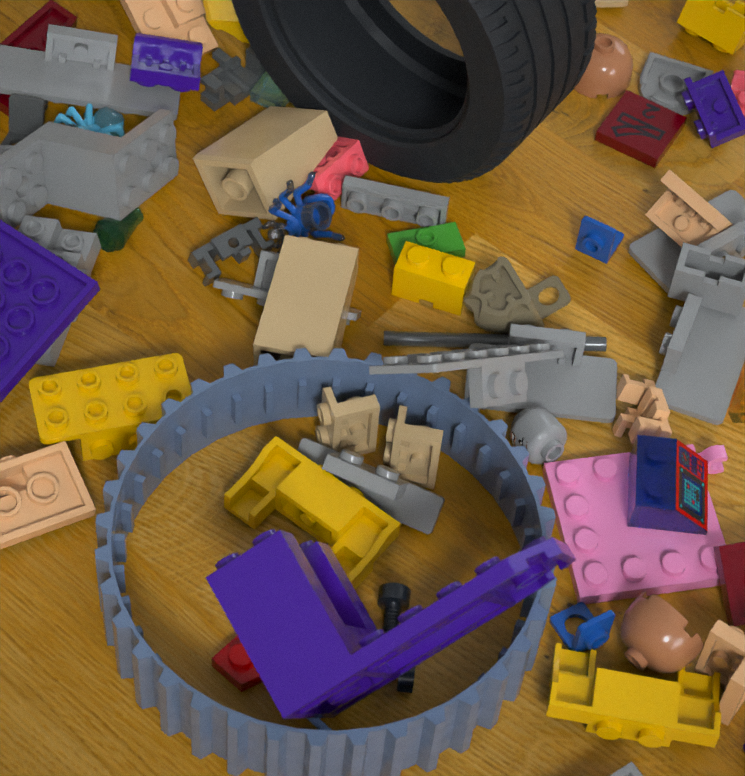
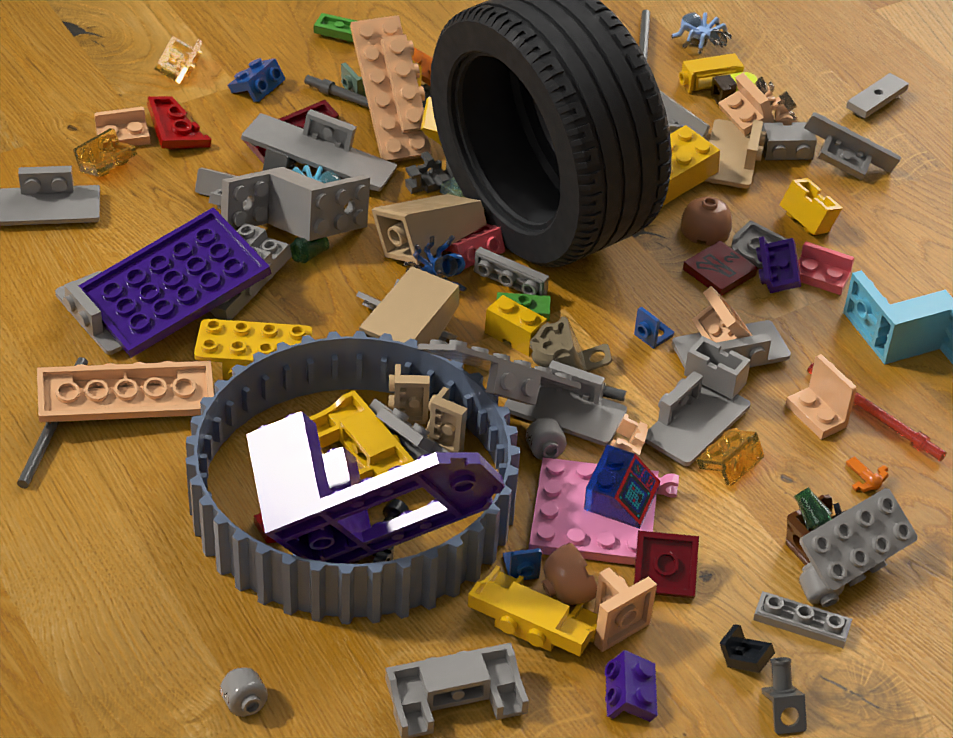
camera: 20 degrees right, 10 degrees down
(166, 62) = (385, 152): dark purple bracket -> none
(230, 243) = (380, 271): dark grey piece -> none

